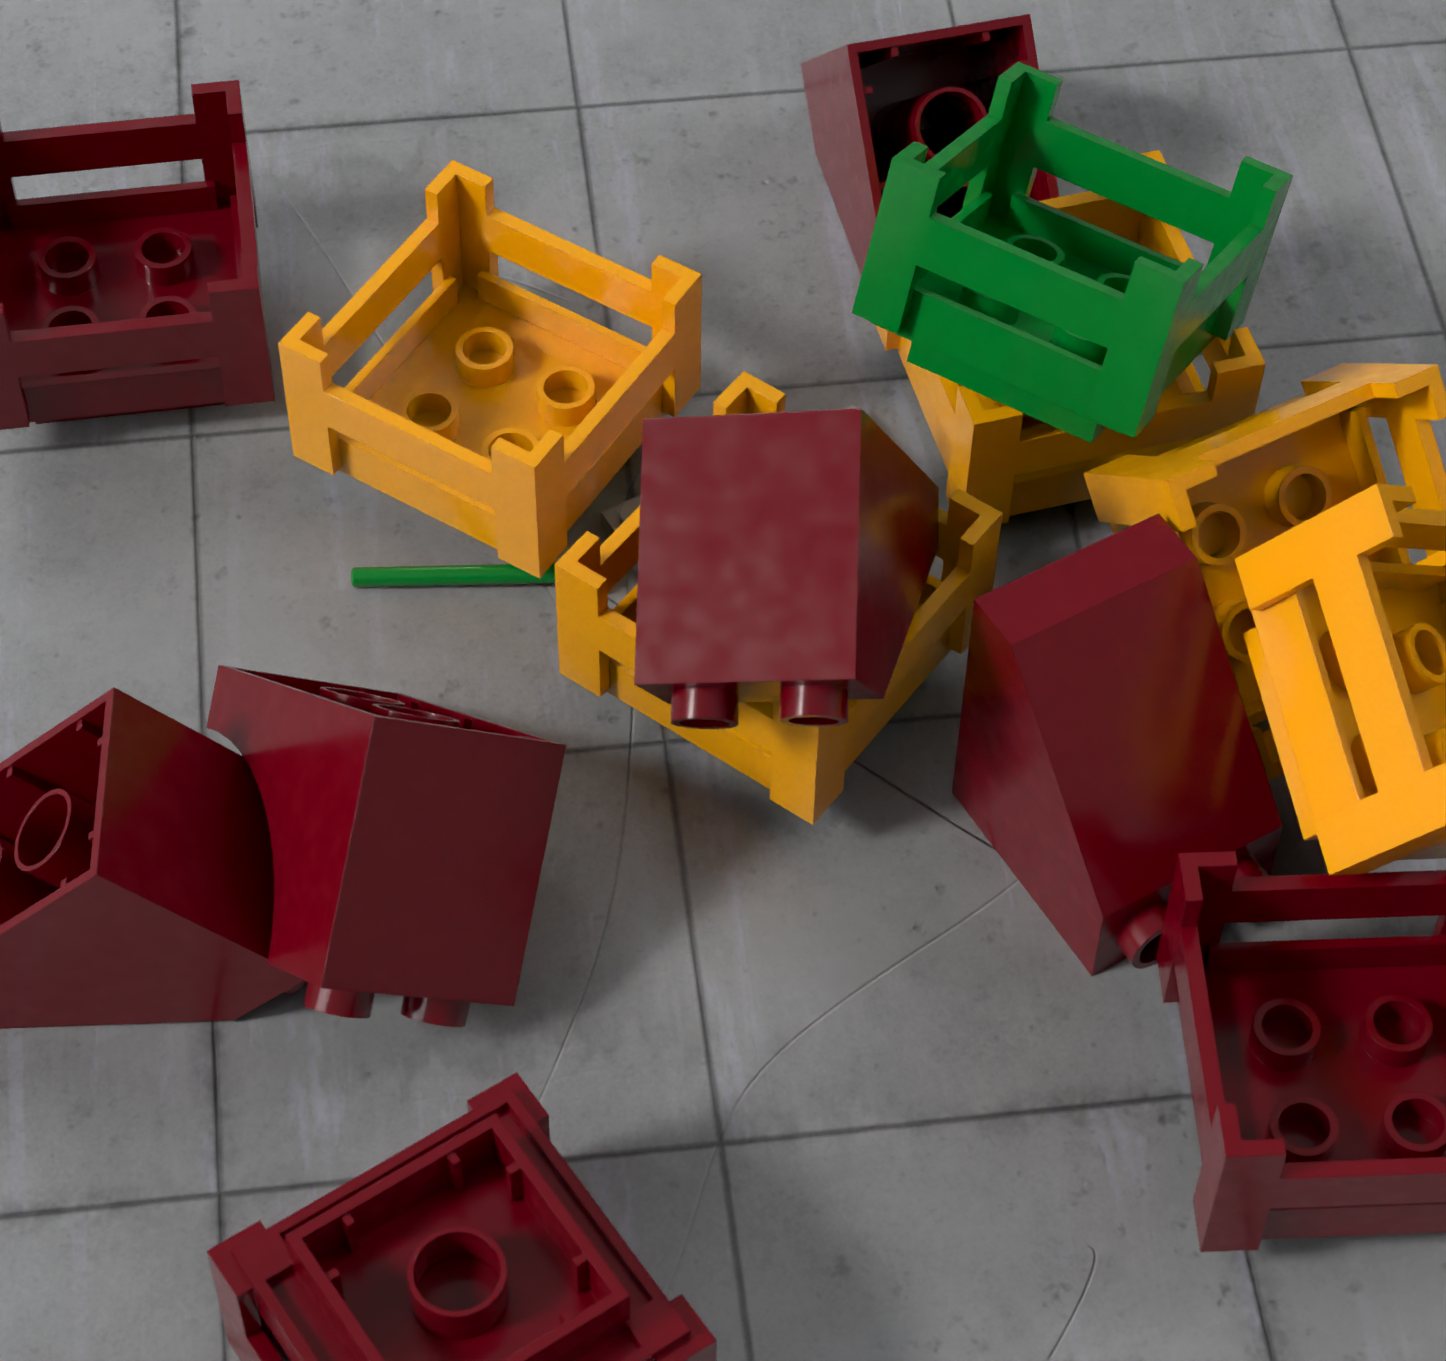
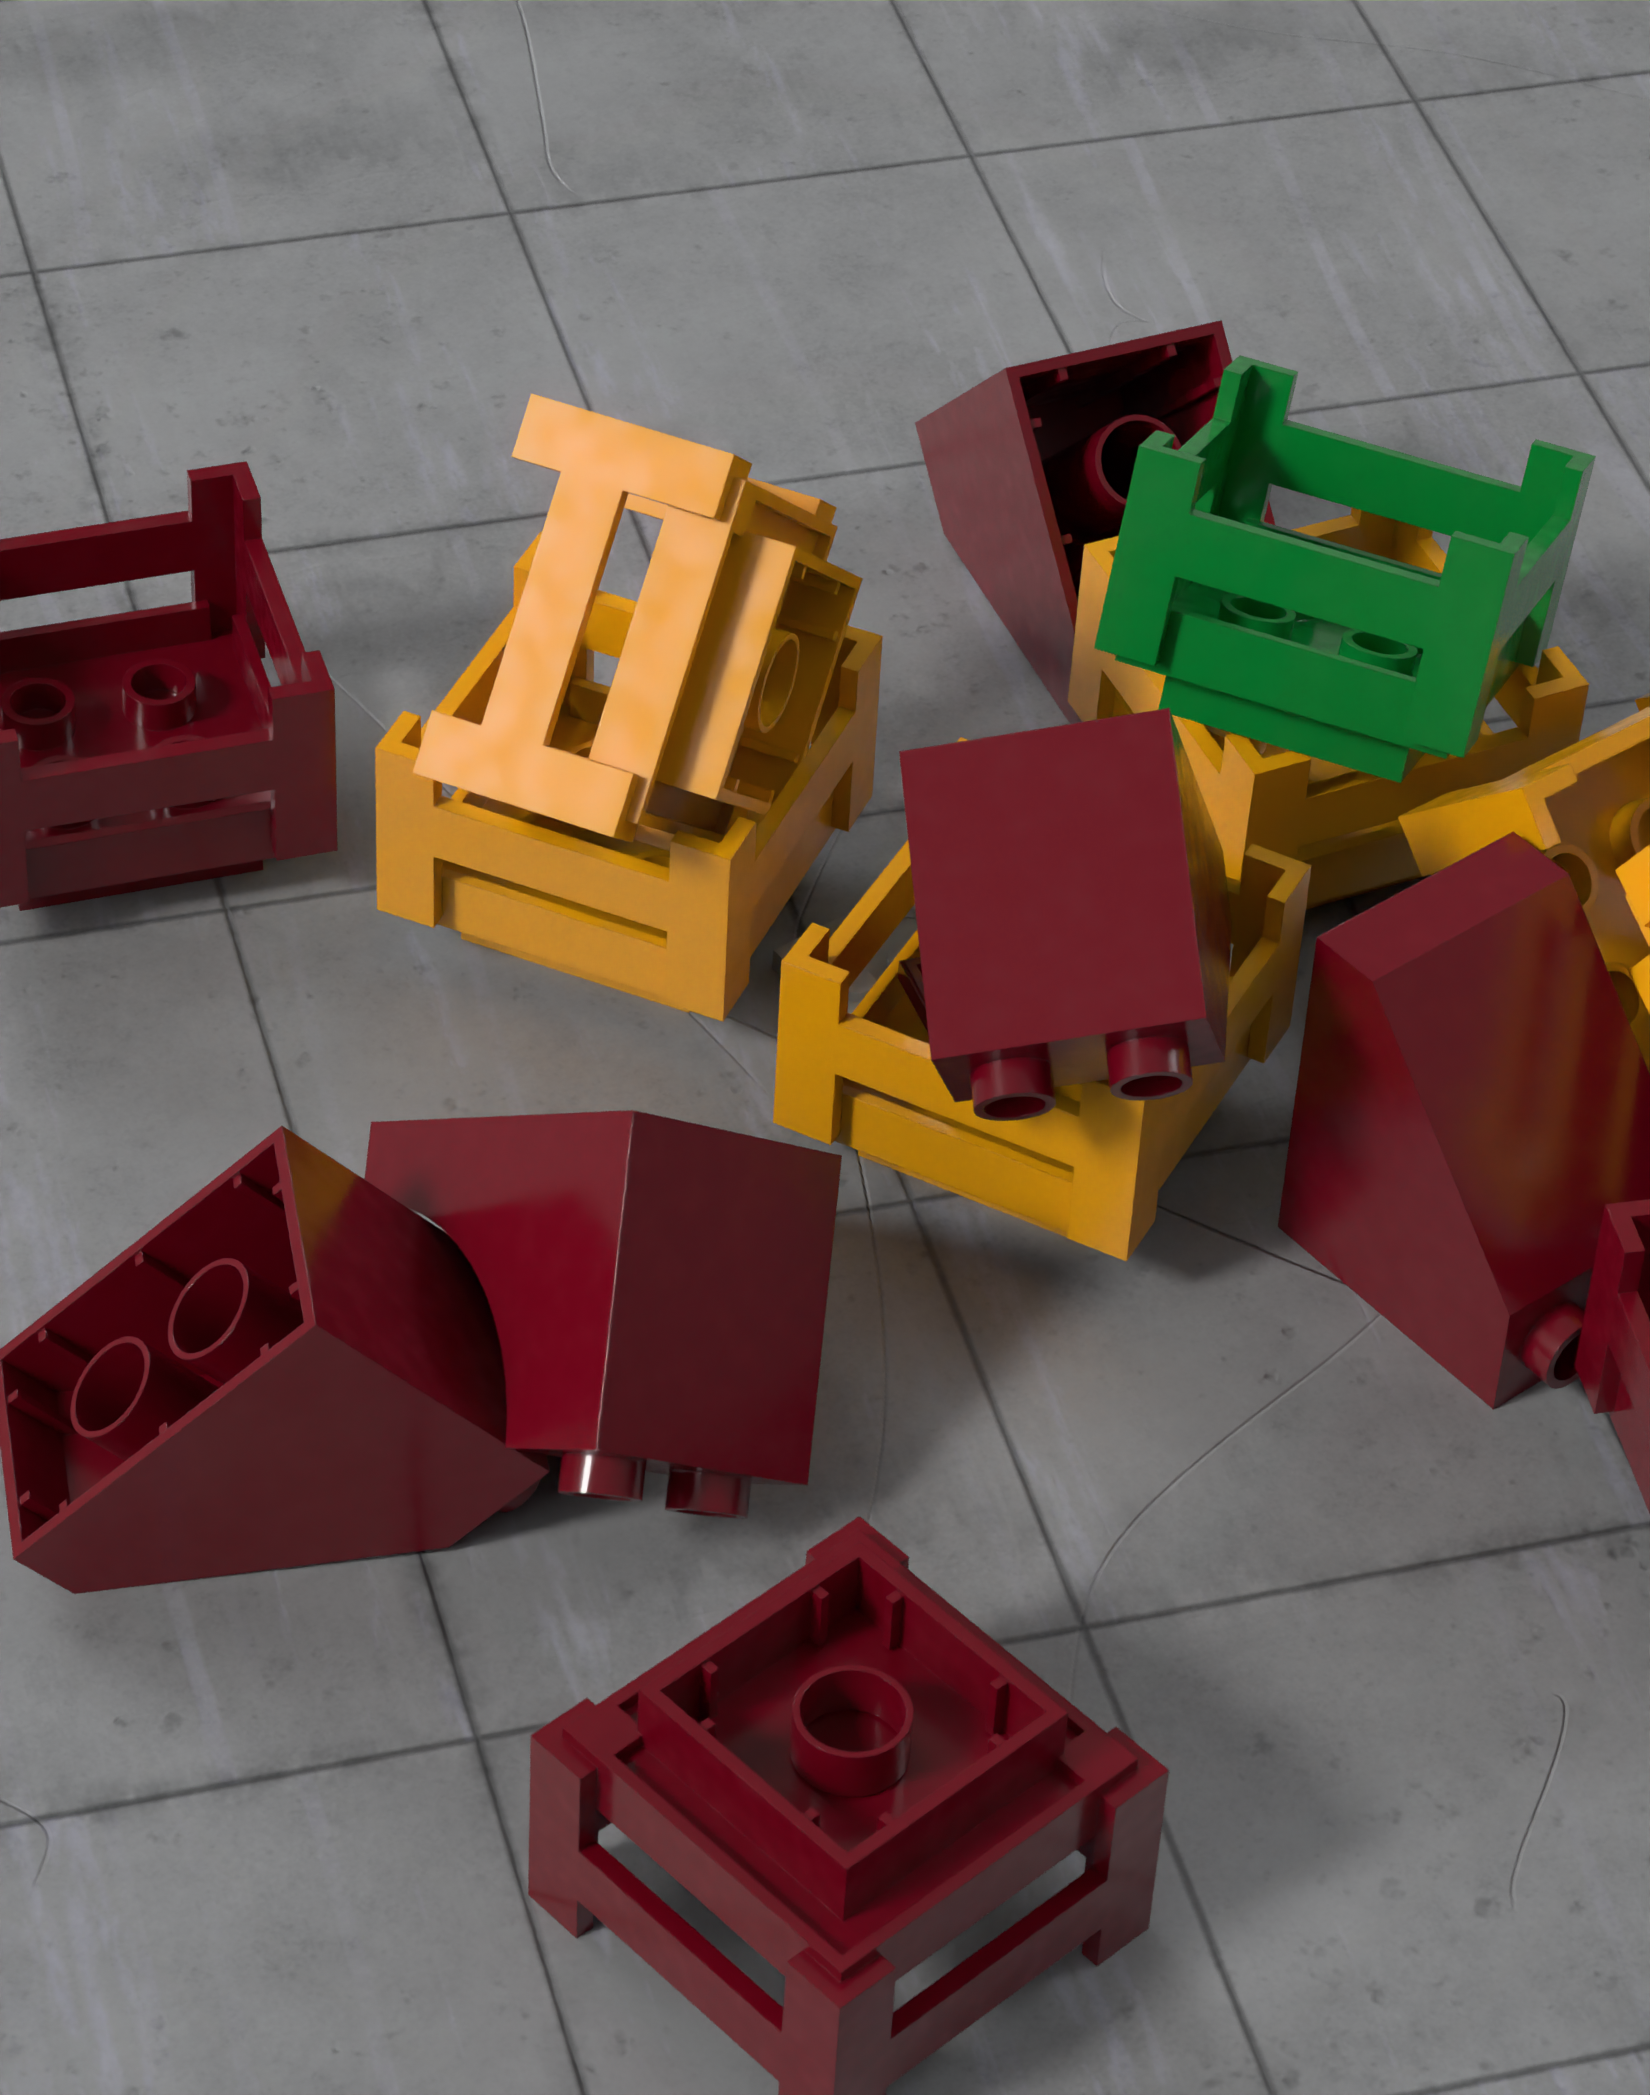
camera: 10 degrees left, 10 degrees down
(445, 575) = (751, 1020): green piece -> none
(545, 293) = (717, 658): none -> light orange piece

